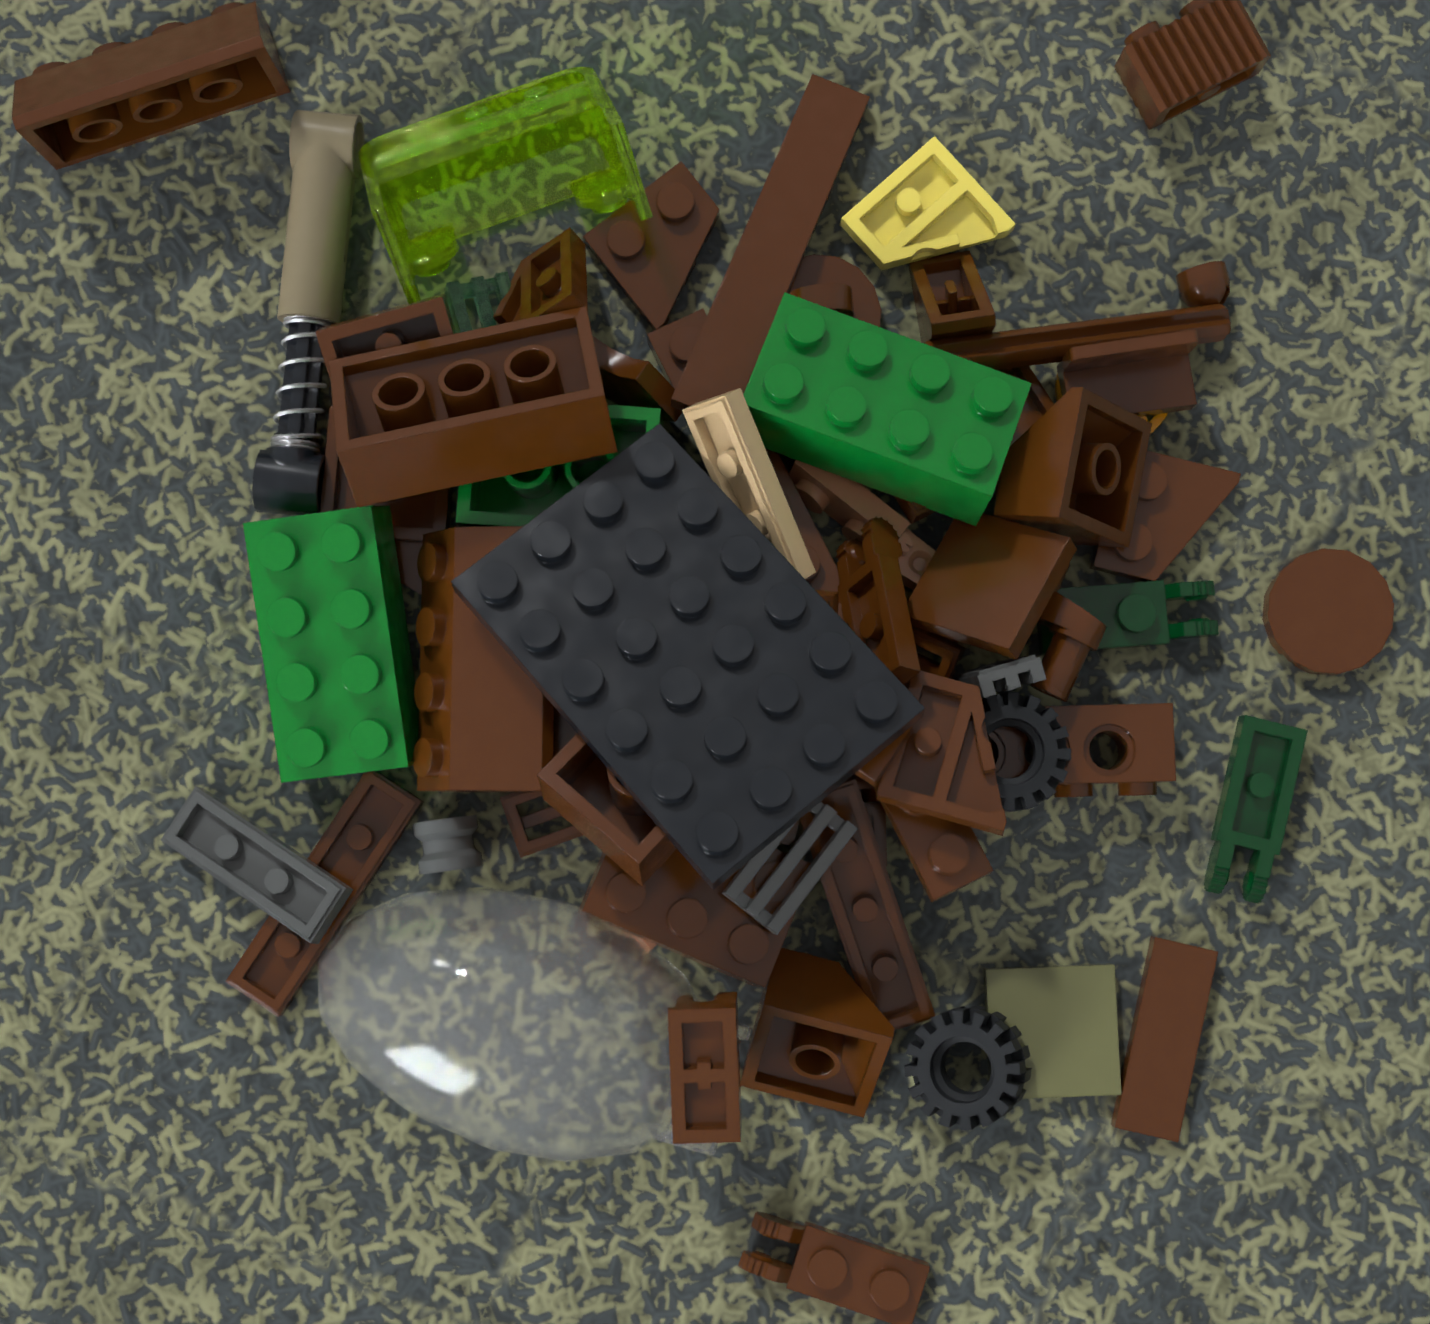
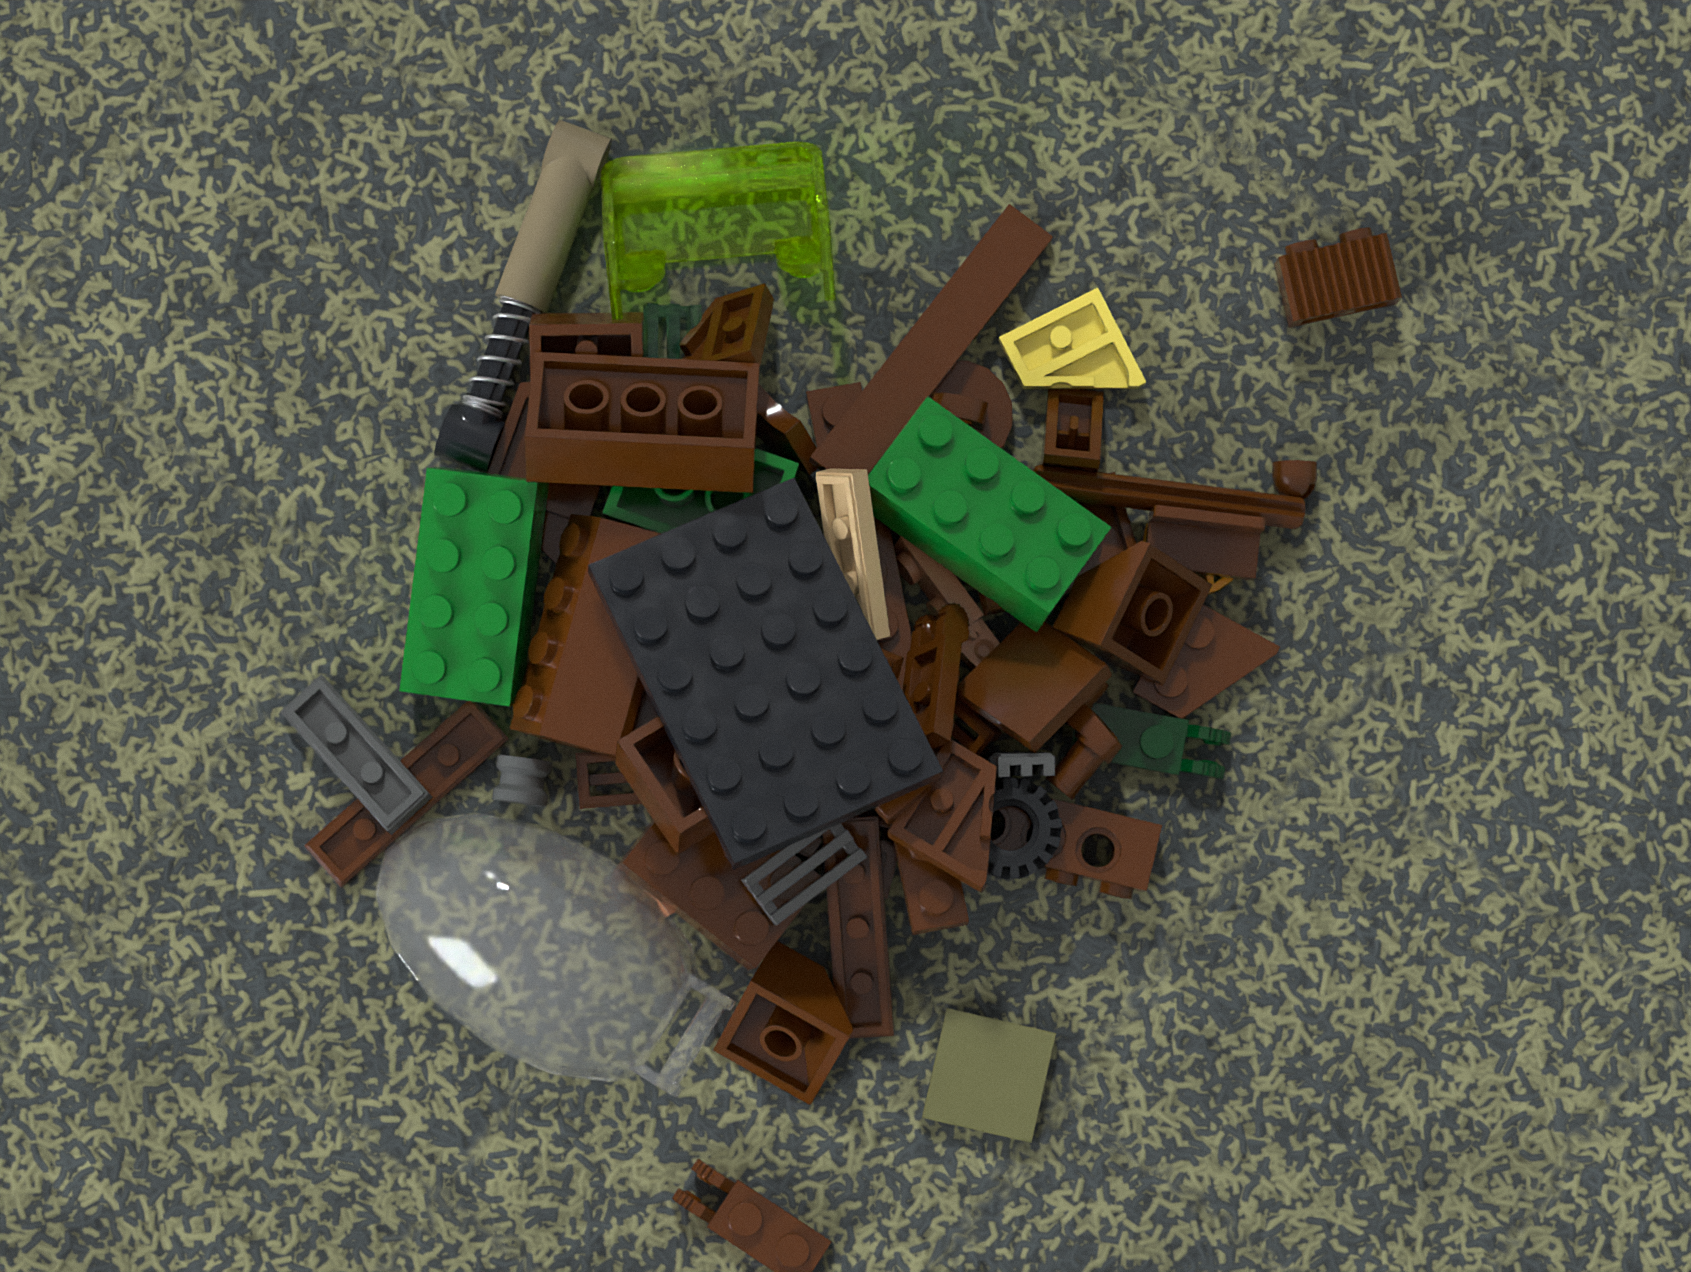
camera: 10 degrees right, 0 degrees up
(149, 85) = (440, 63): reddish brown slope -> none
(657, 254) = (833, 330): reddish brown wing -> none
(705, 1070) = (688, 1020): reddish brown hinge -> none
(936, 1088) = (876, 1076): black tyre -> none
(1164, 1039) = (1082, 1106): reddish brown tile -> none
(1255, 802) = (1214, 927): dark green hinge -> none
(1328, 611) = (1322, 784): reddish brown tile -> none

